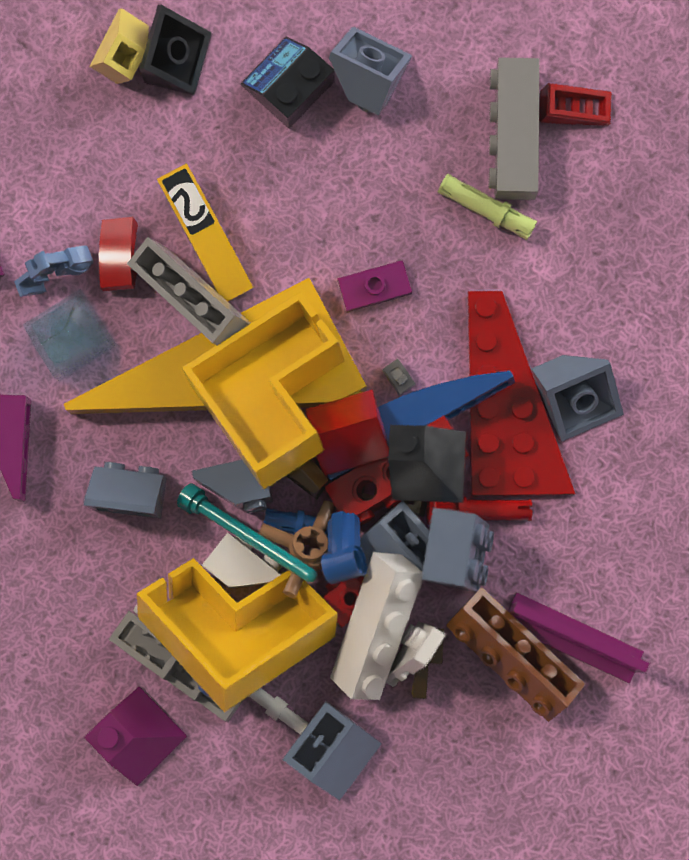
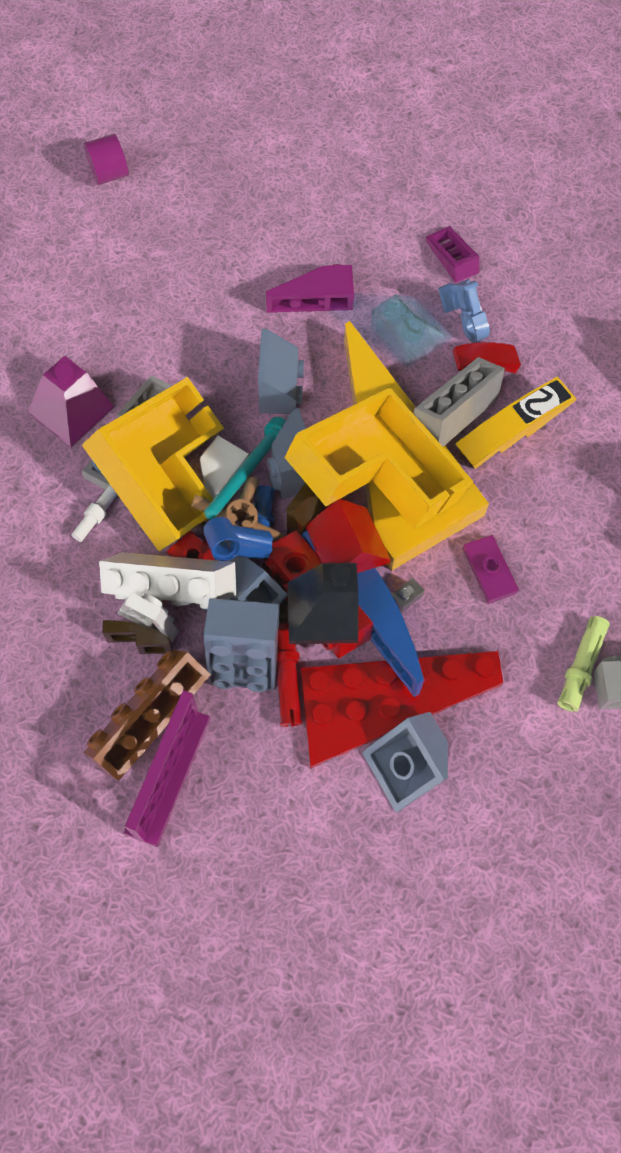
camera: 80 degrees right, 15 degrees down
(332, 751) = (55, 556): sand blue slope -> none

